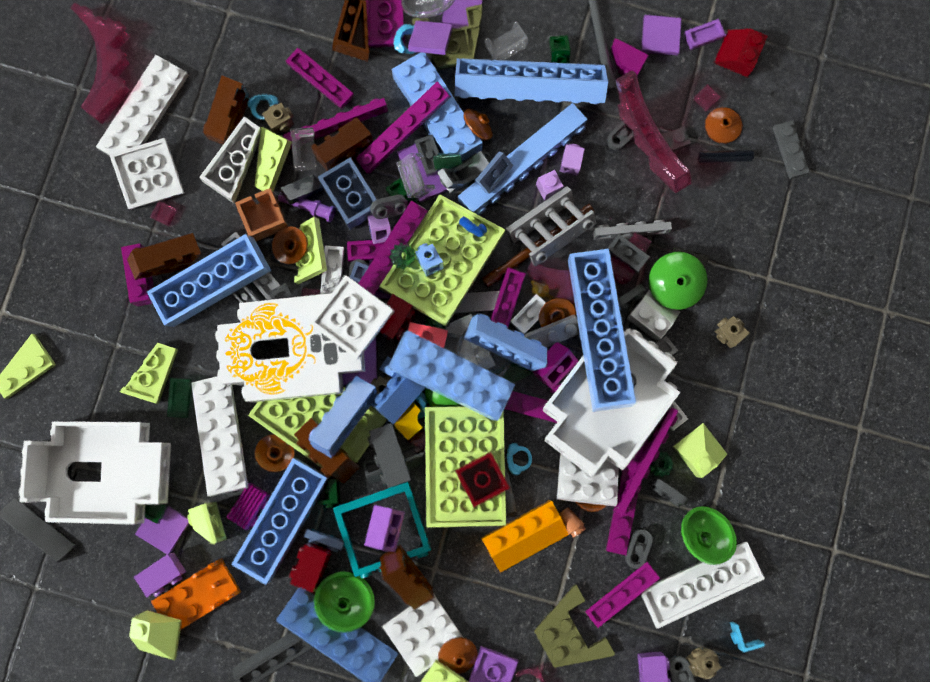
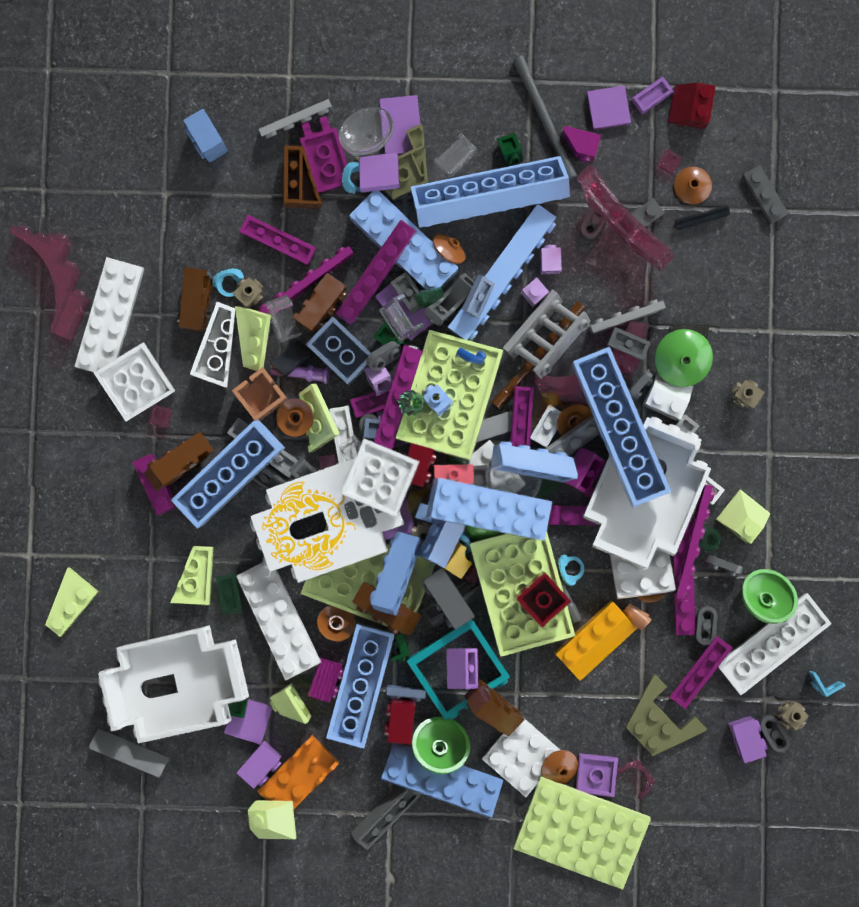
camera: 10 degrees left, 5 degrees up
(383, 352) = (415, 498): none -> clear yellow piece

